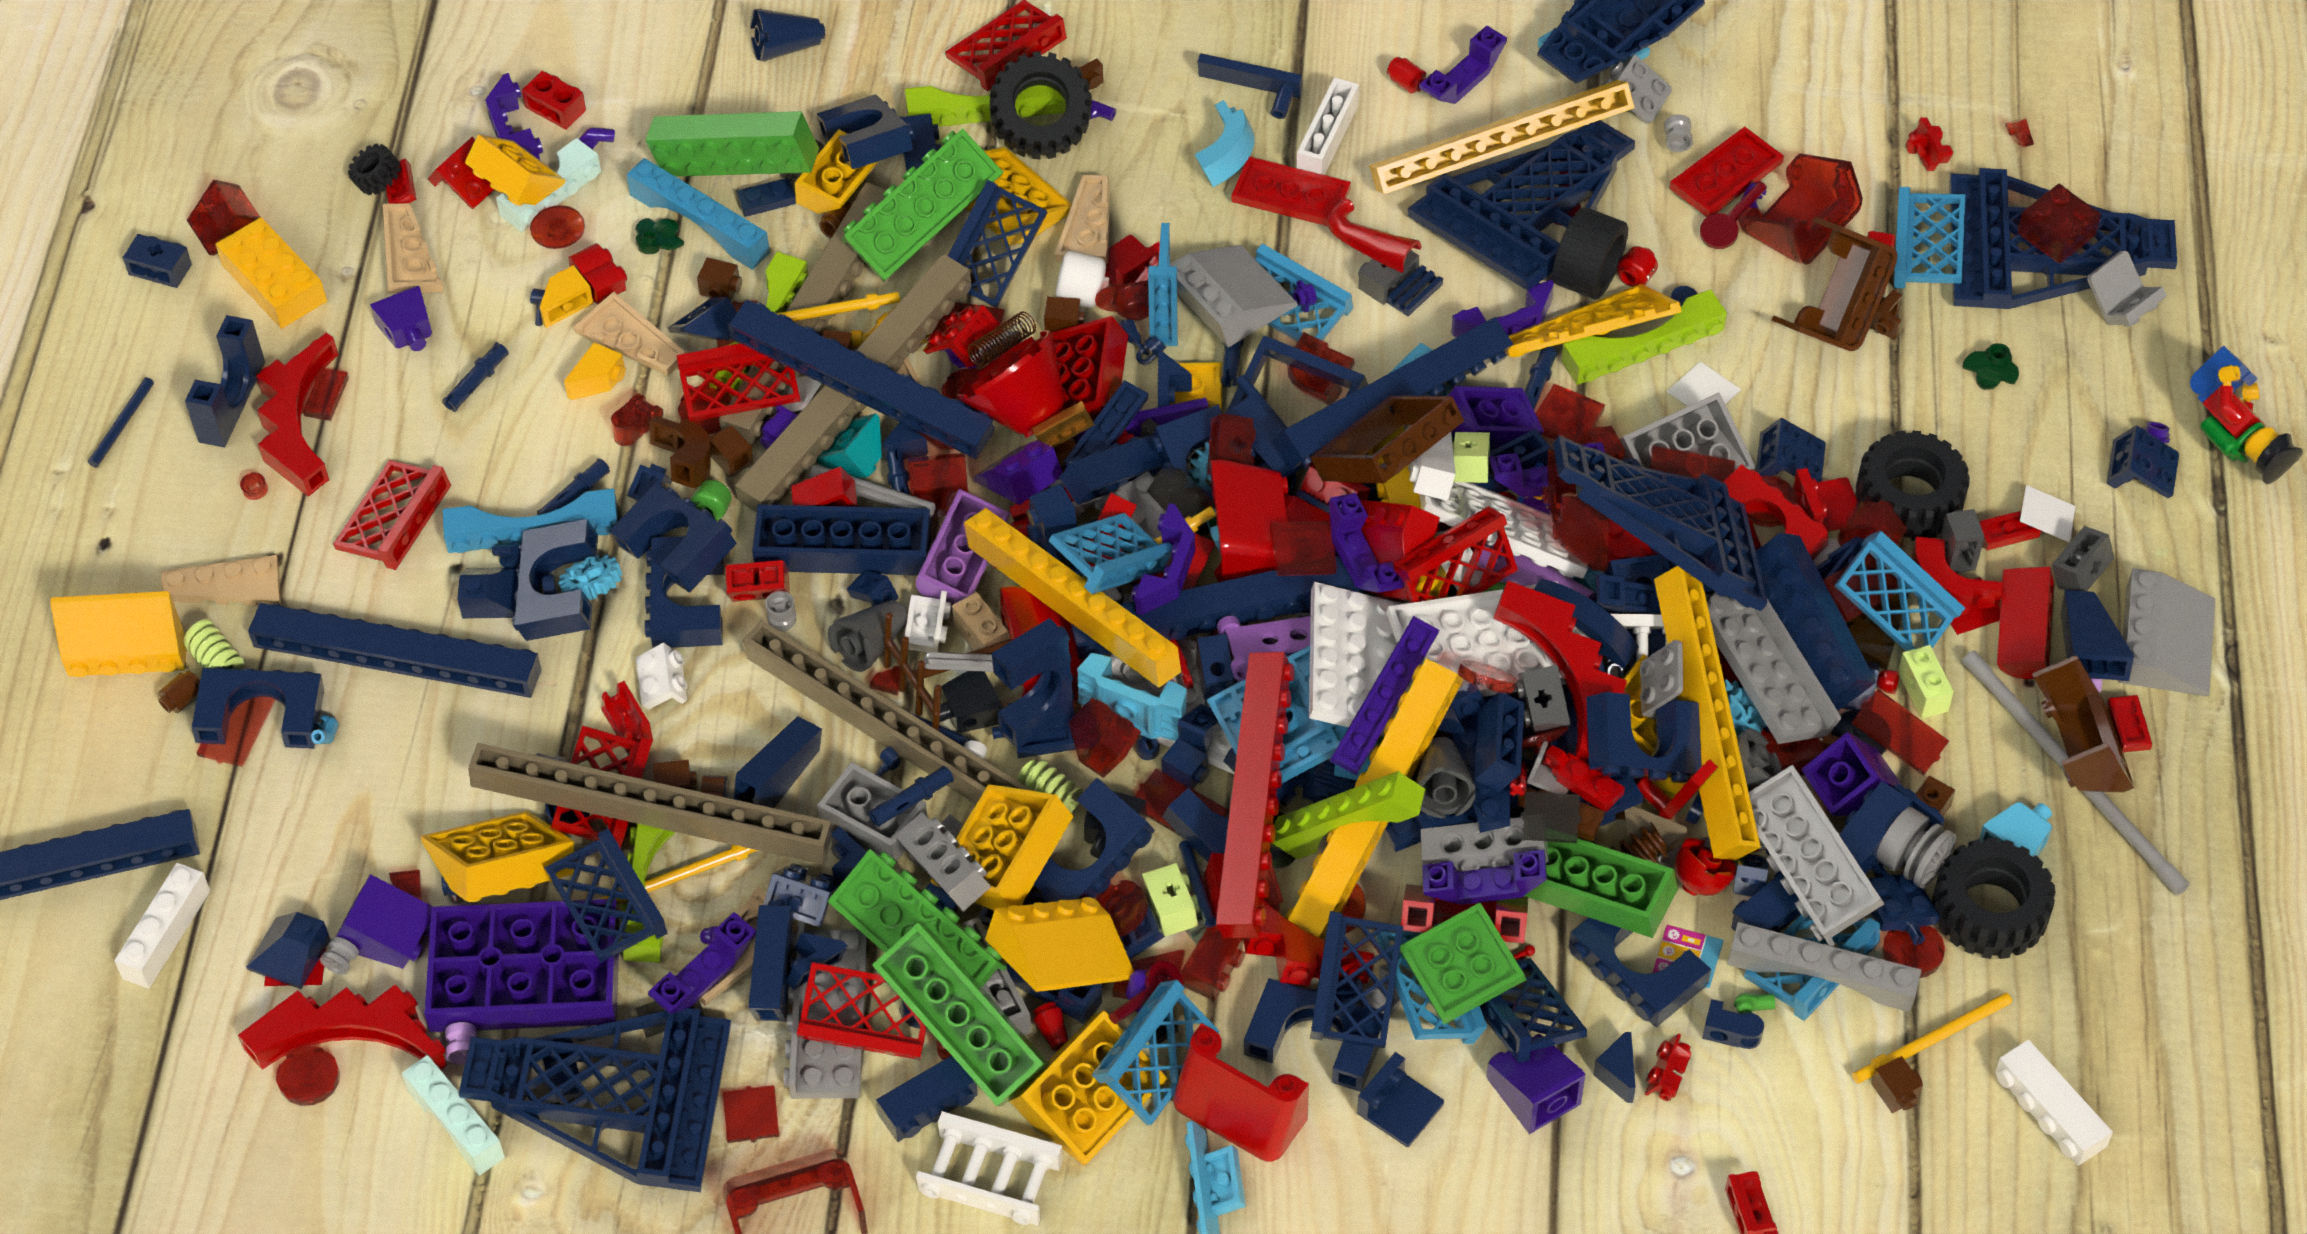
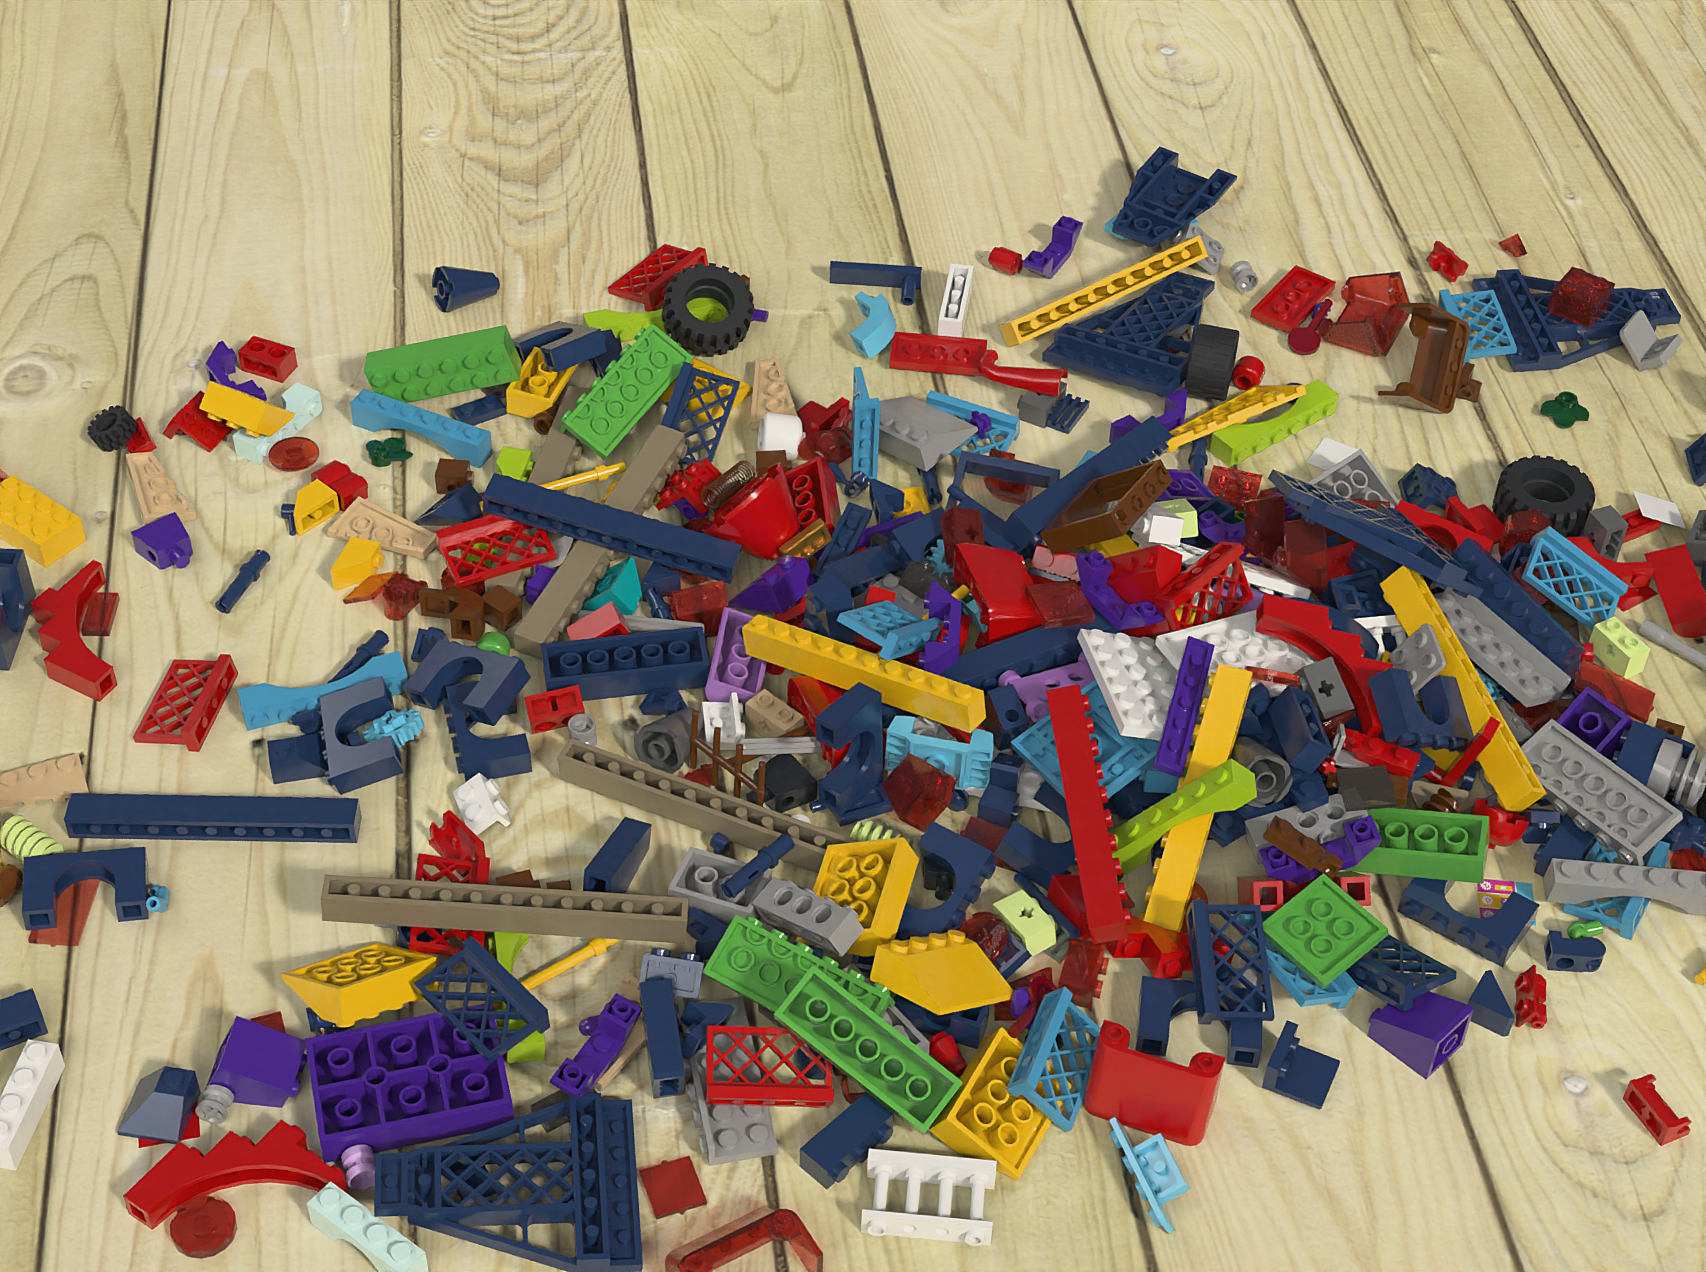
camera: 15 degrees left, 10 degrees down
(251, 480) = (39, 694): clear red bush -> none
(596, 135) = (314, 381): dark purple arm -> none
(603, 405) = (371, 587): none -> clear red piece
(1463, 870) = (1302, 848): none -> reddish brown hinge

